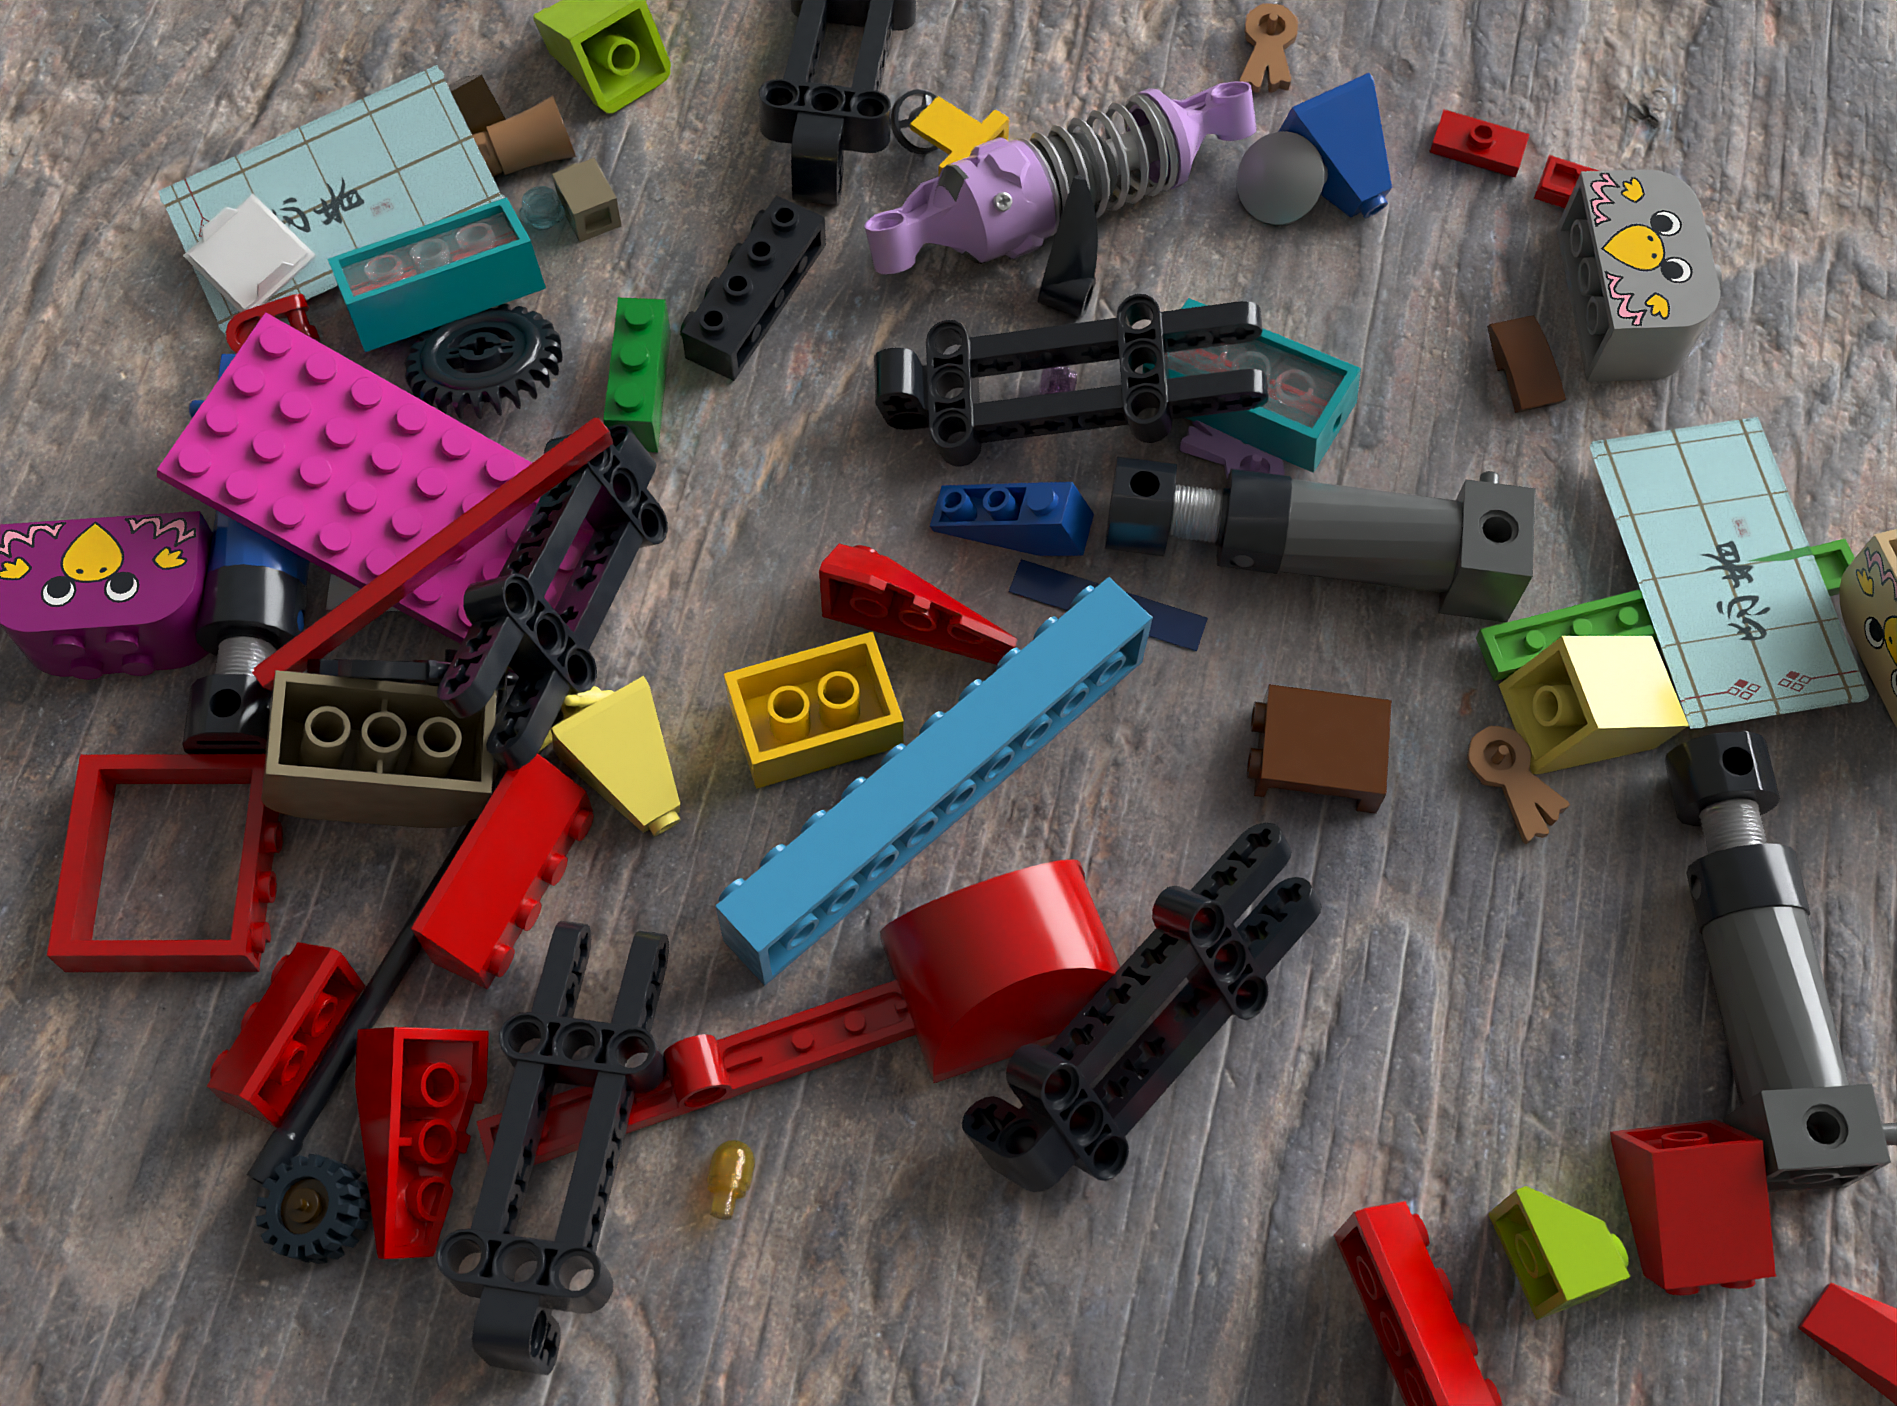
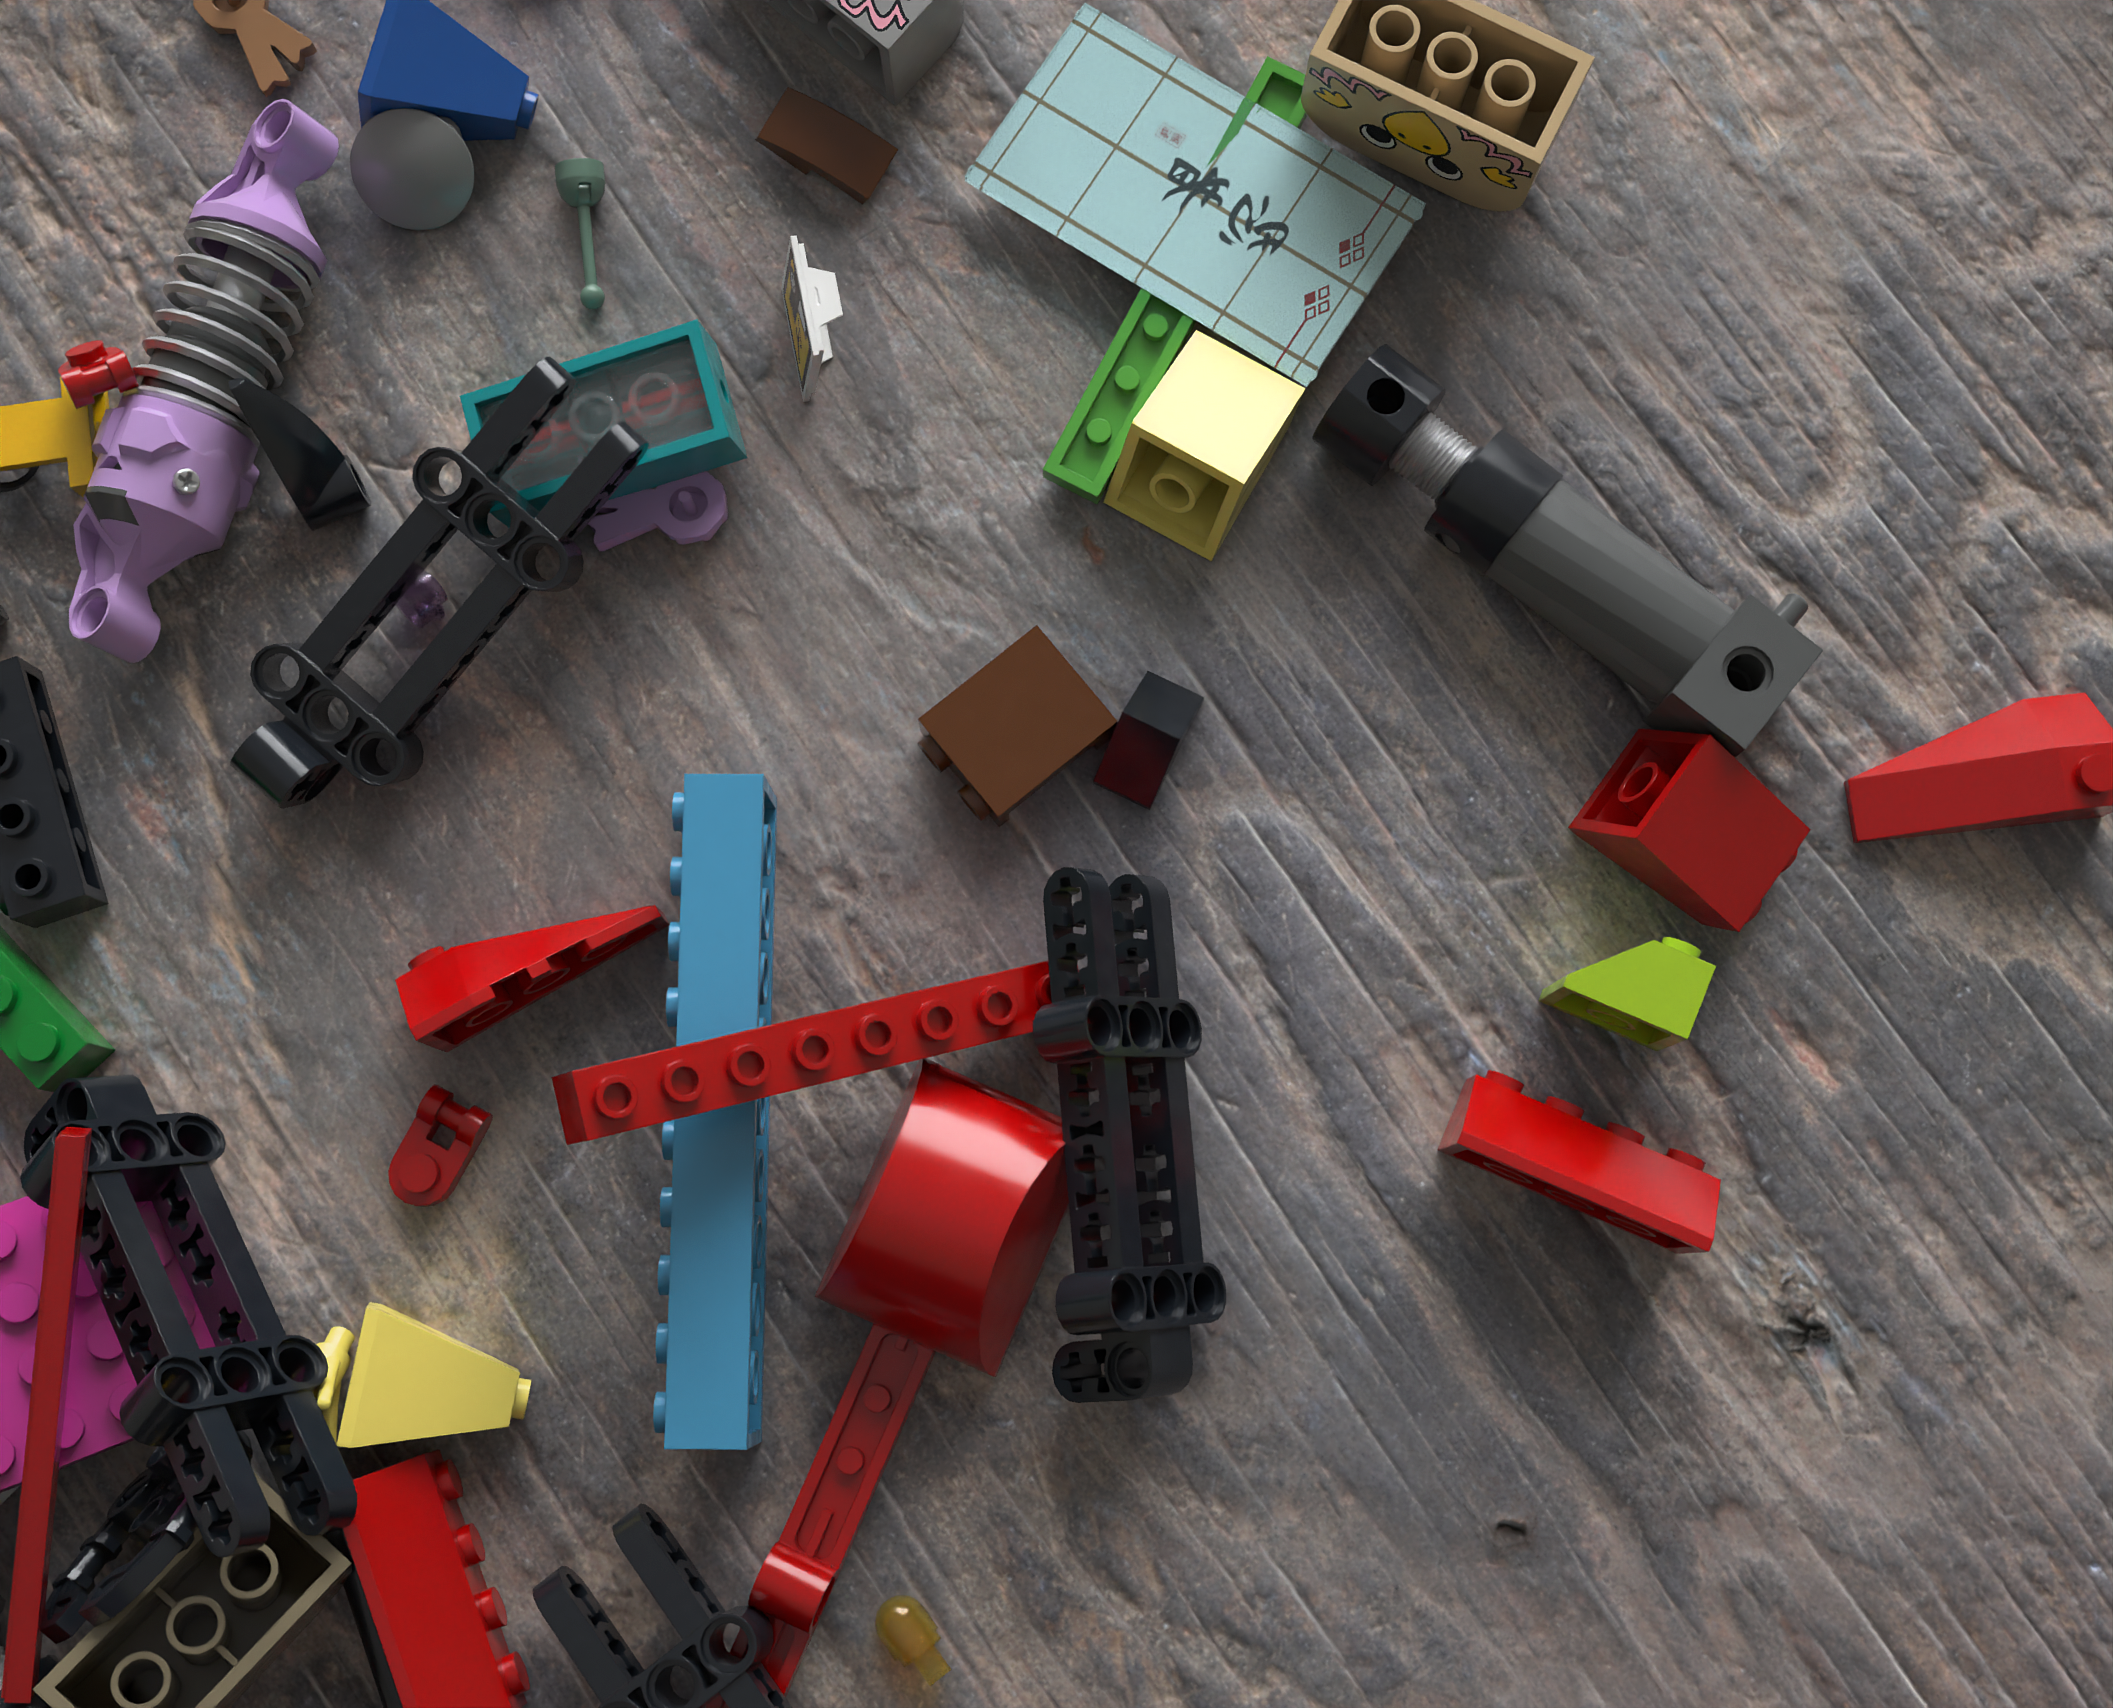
camera: 45 degrees left, 15 degrees up
(753, 647) = (425, 1171): none -> red plate
(814, 709) = (521, 1181): yellow brick -> none
(1012, 117) = (95, 370): none -> red plate
(1016, 516) = (522, 778): blue slope -> none
(1018, 772) = (798, 1053): none -> red brick
(1060, 590) = (651, 792): dark blue sticker -> none
(1363, 266) = (582, 186): none -> sand green hinge
(1392, 829) = (1147, 739): none -> slope
(1438, 418) = (810, 304): none -> white piece
(1464, 548) = (763, 556): dark grey piece -> none
(1503, 760) = (1174, 577): medium nougat piece -> none

